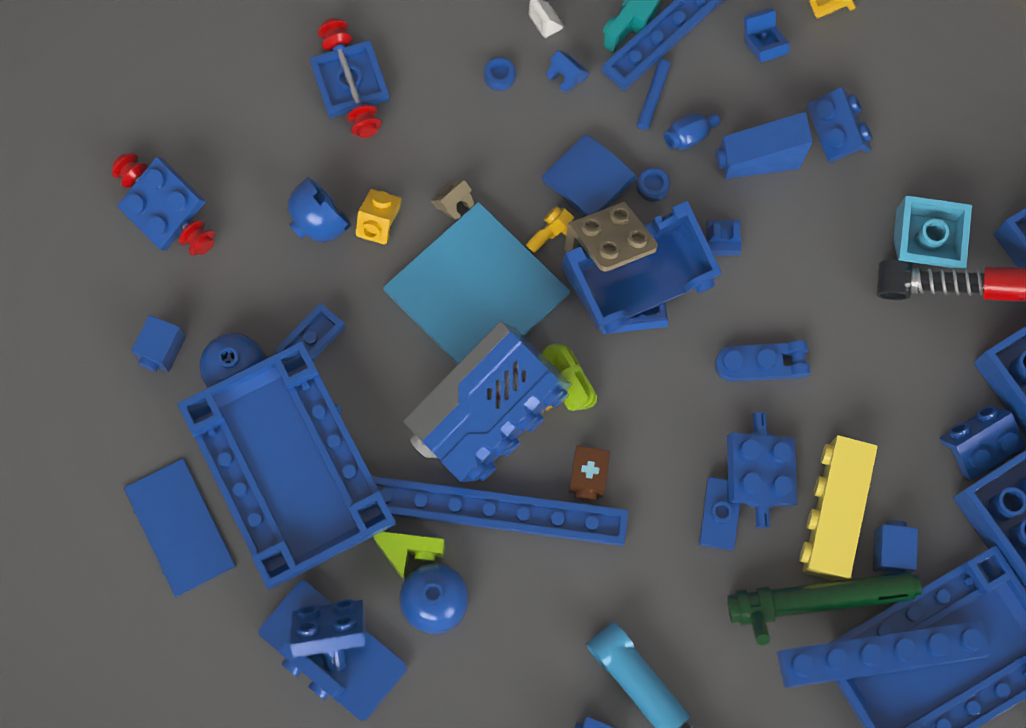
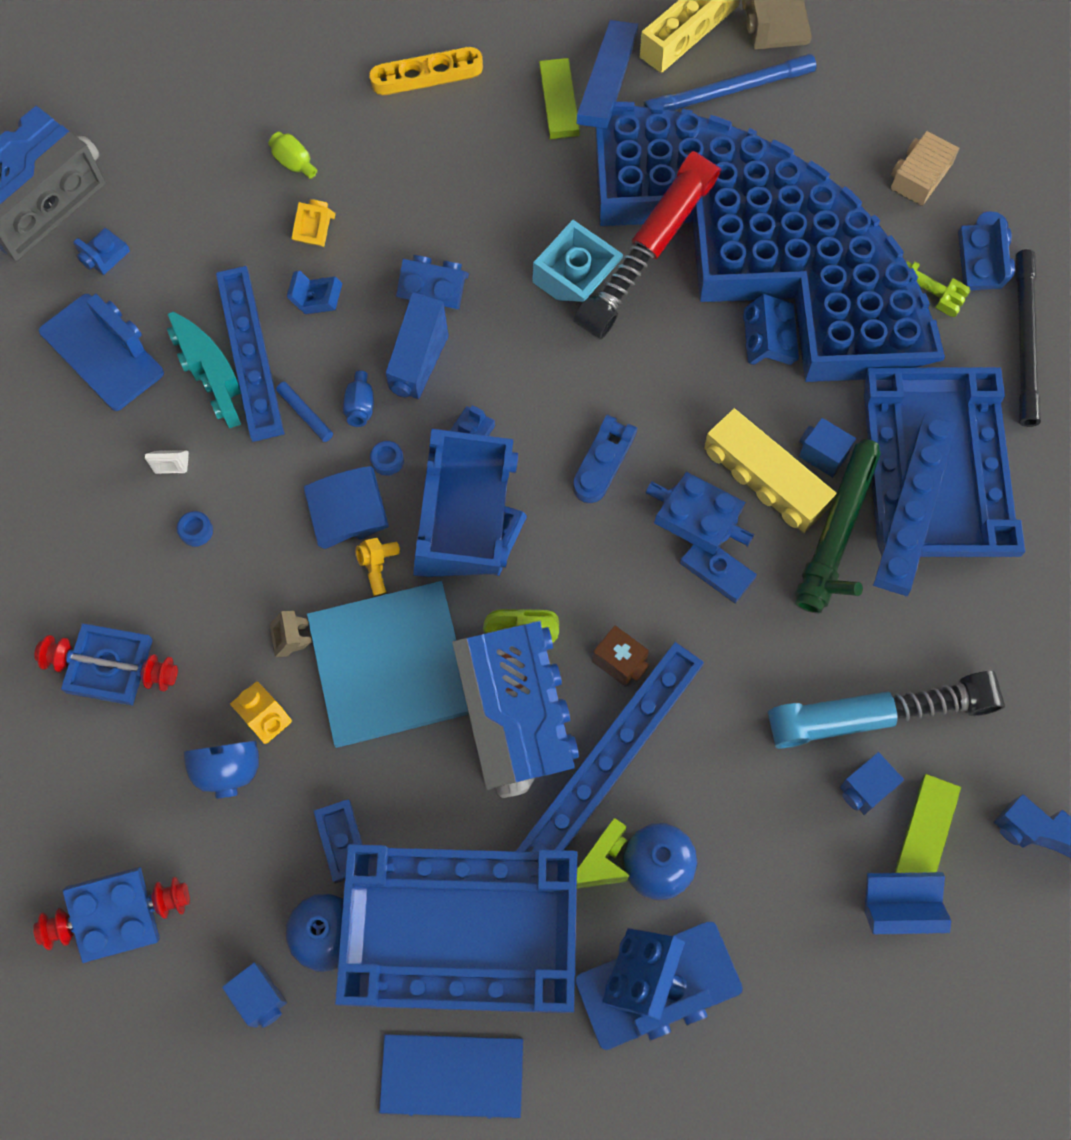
camera: 55 degrees left, 5 degrees down
(571, 69) = (235, 464): blue tile -> none
(611, 237) = (420, 513): dark tan bracket -> none

